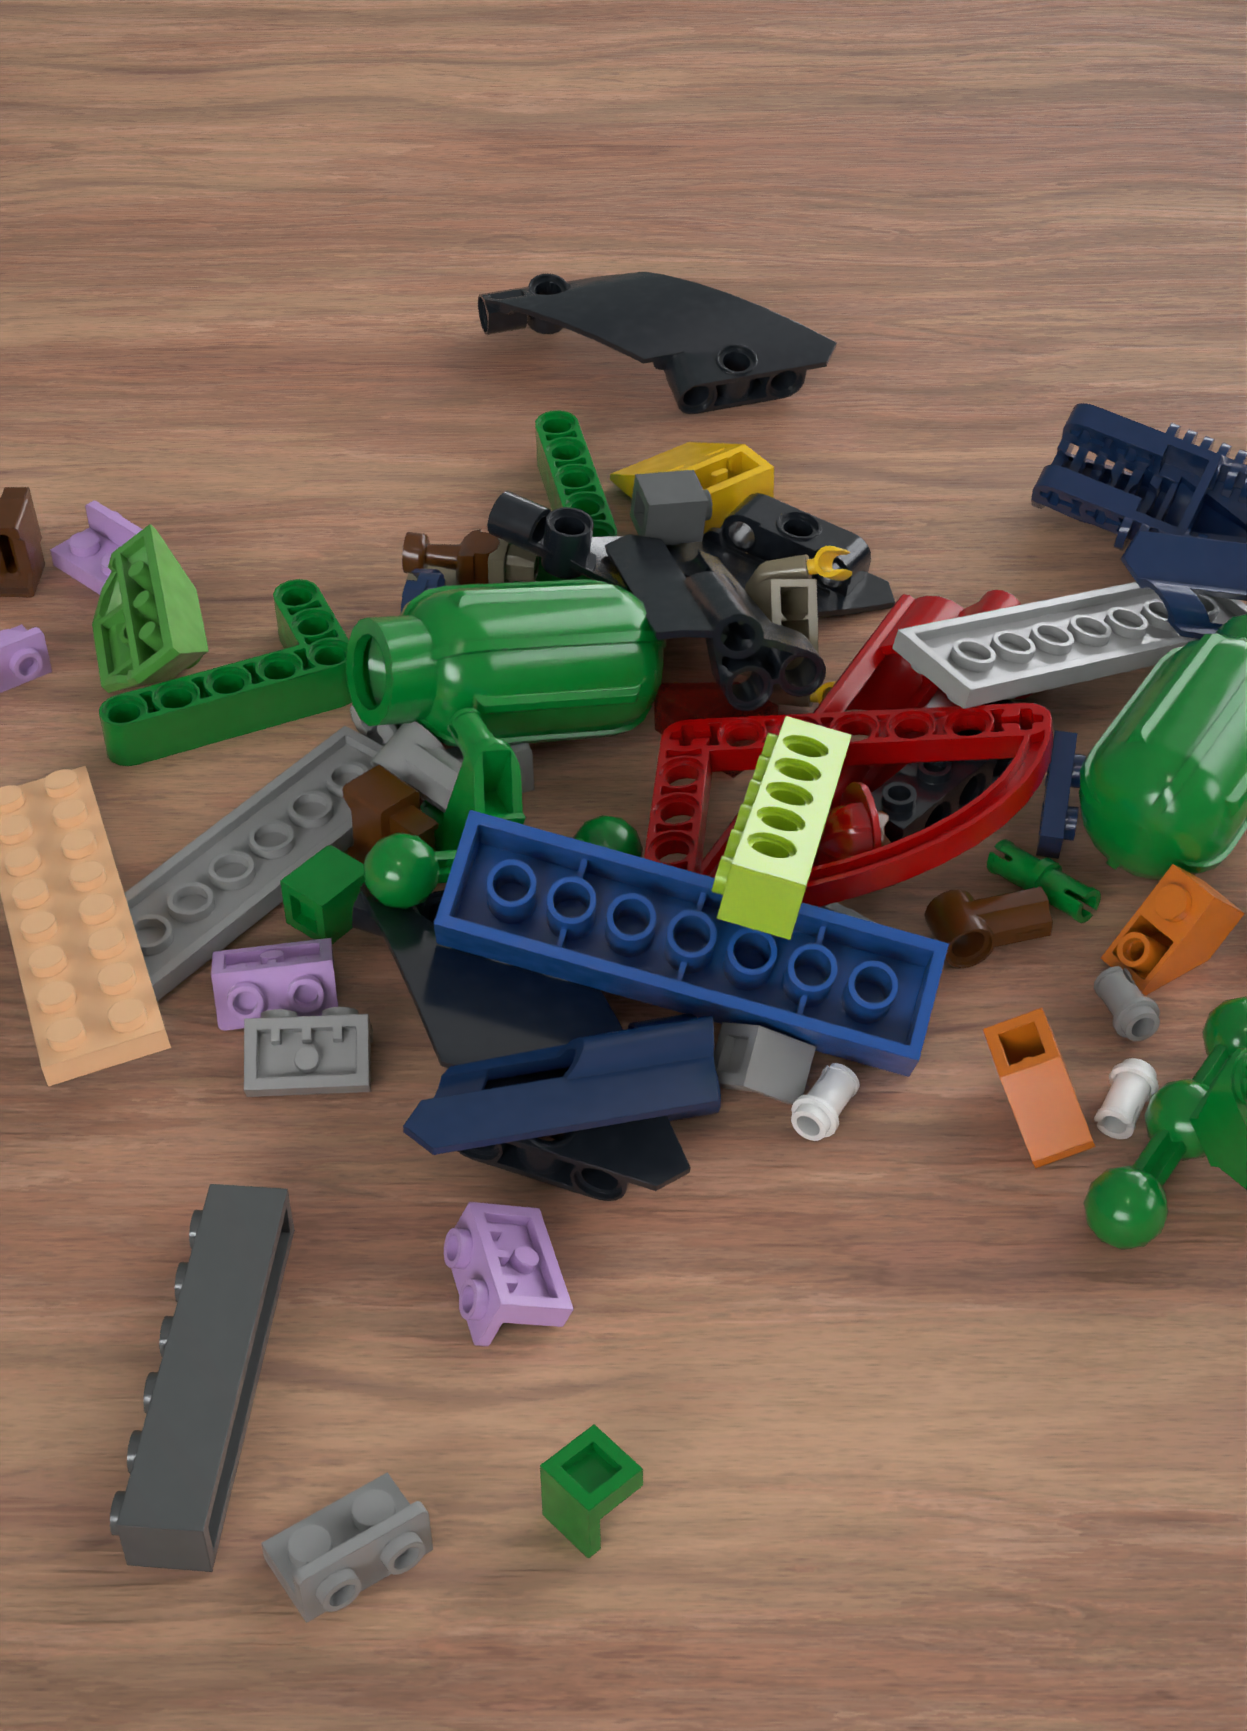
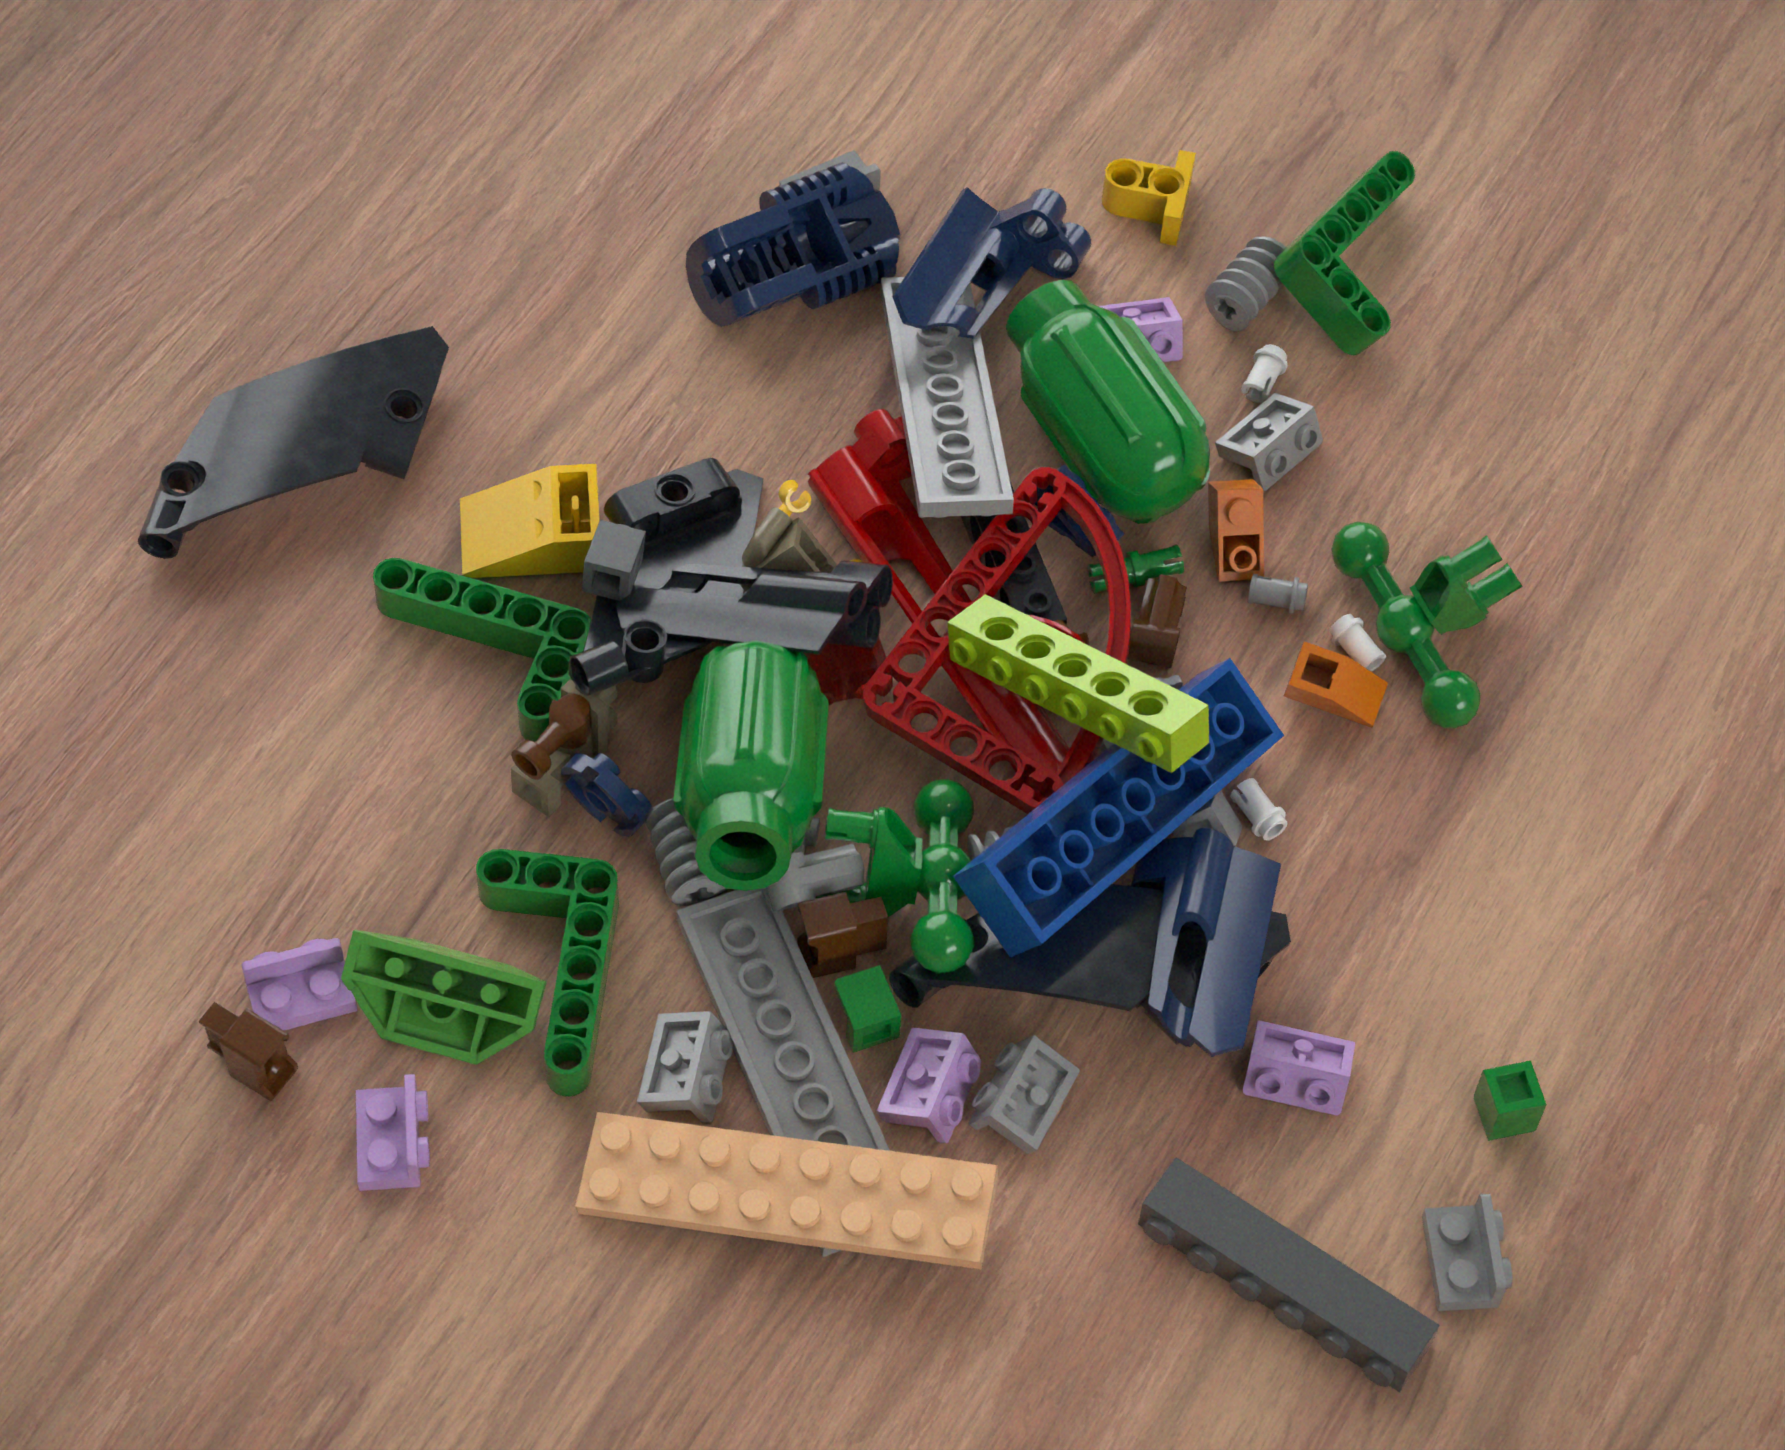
camera: 65 degrees left, 15 degrees up
(177, 808) = (686, 1064): none -> light grey bracket

